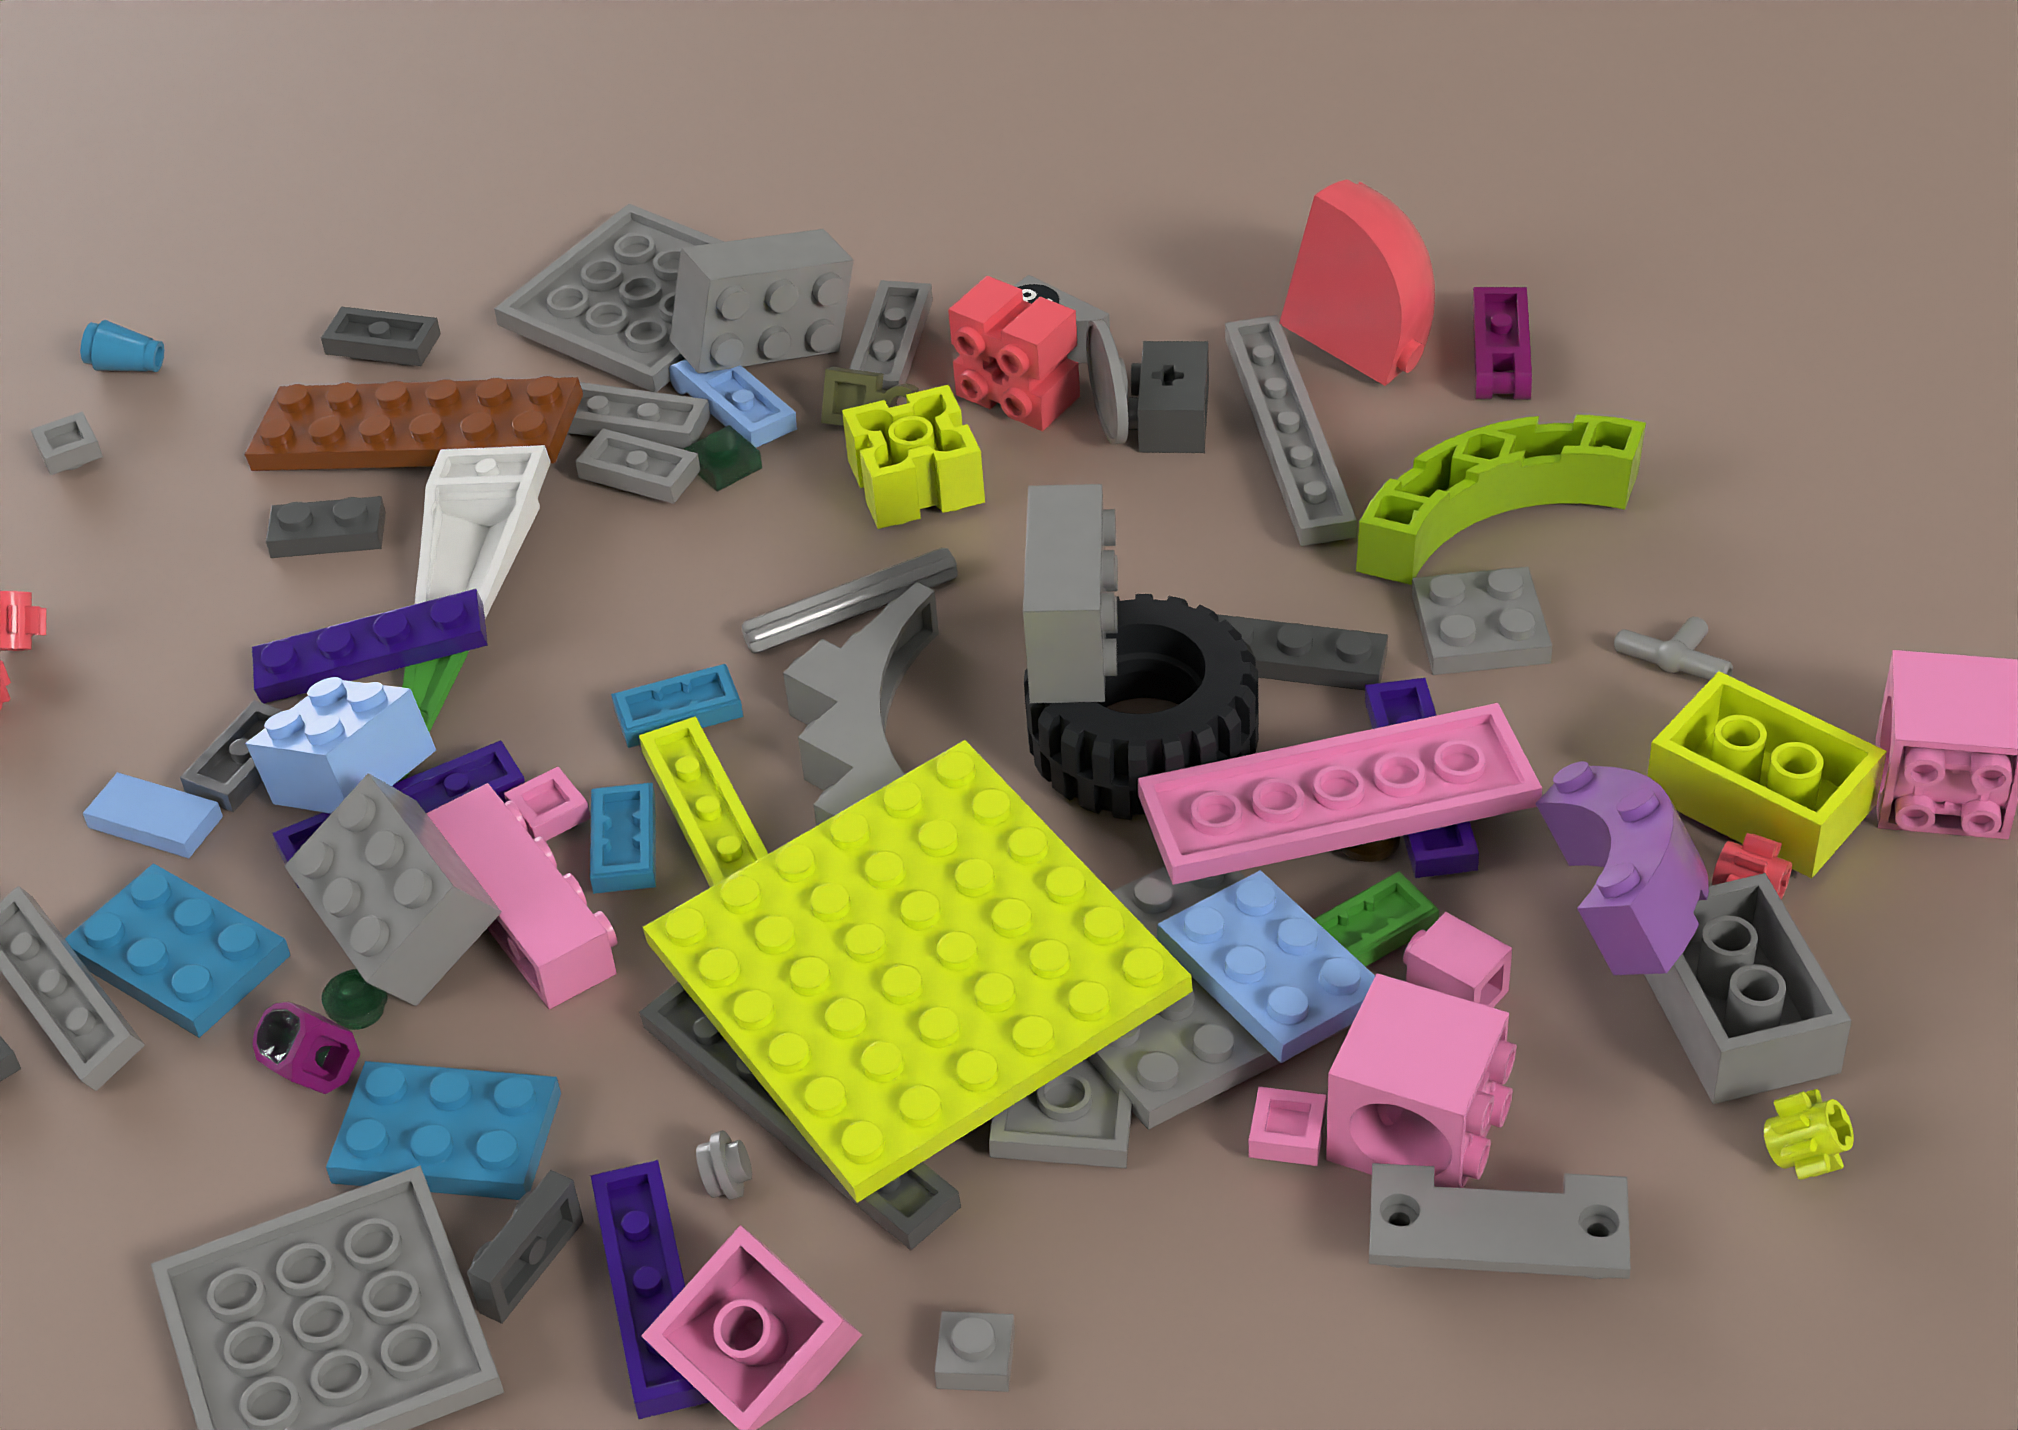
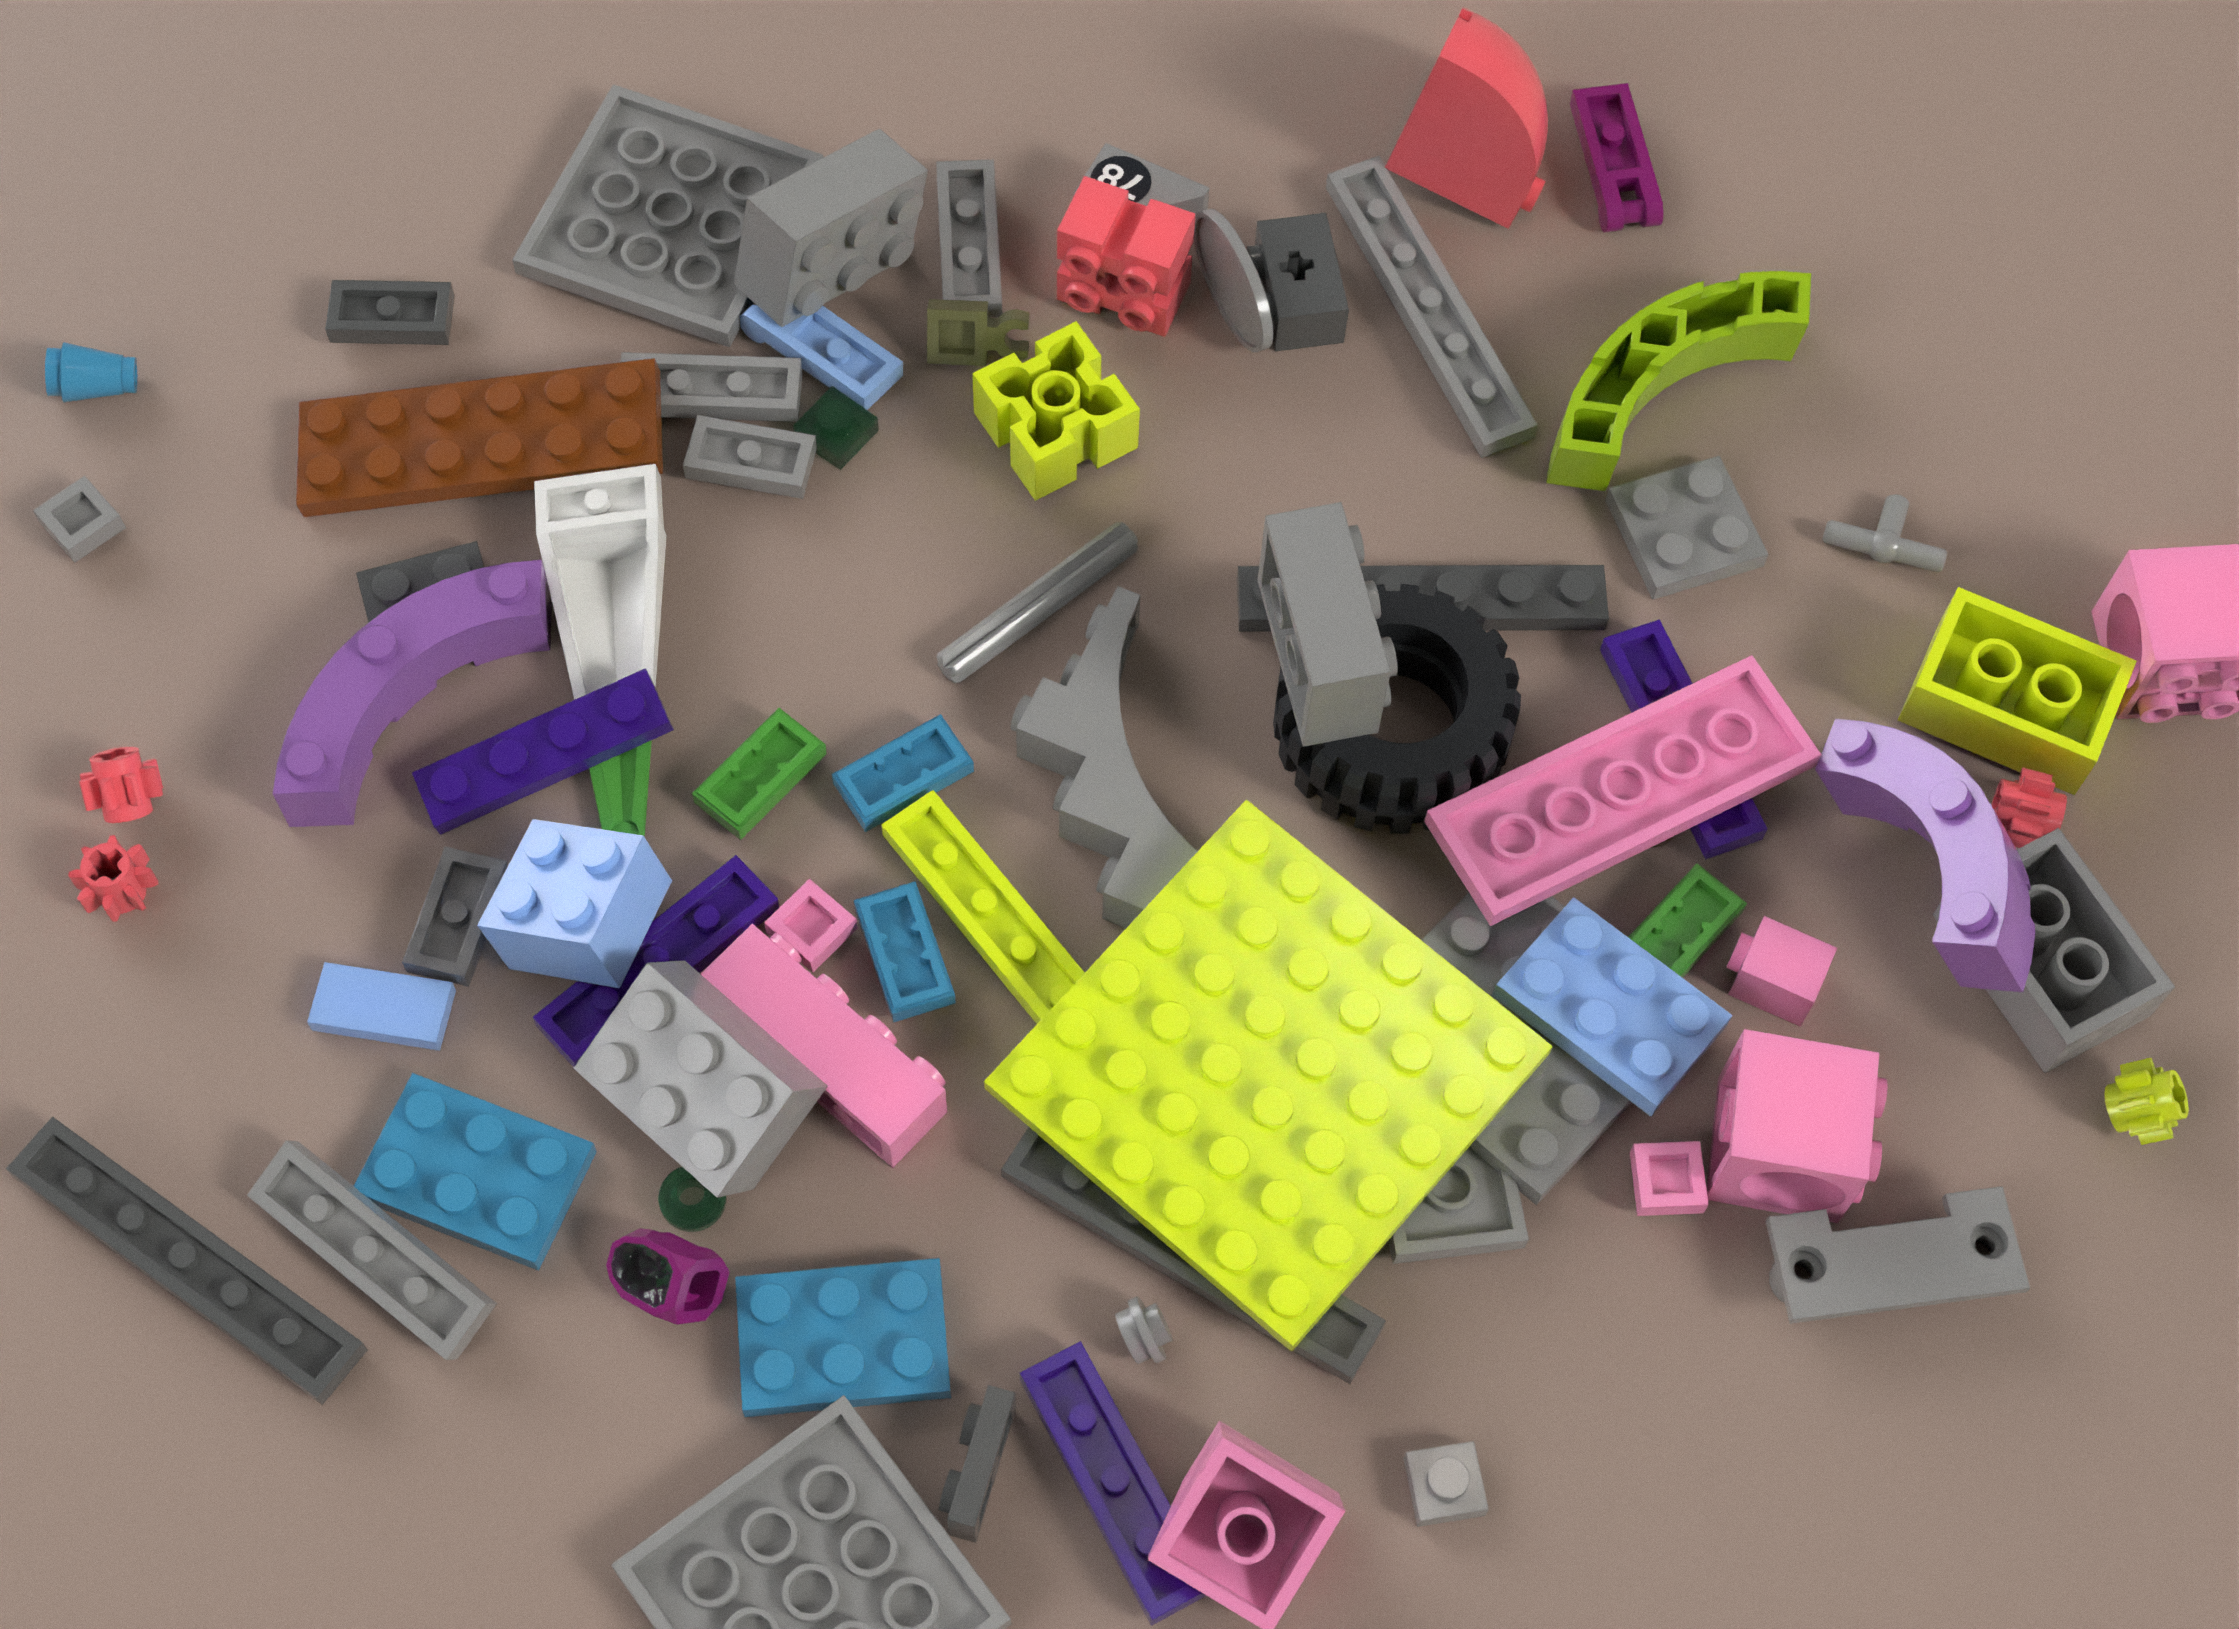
camera: 20 degrees left, 20 degrees up
(266, 571) = (390, 669): none -> medium lavender brick
(550, 689) = (759, 773): none -> bright green plate

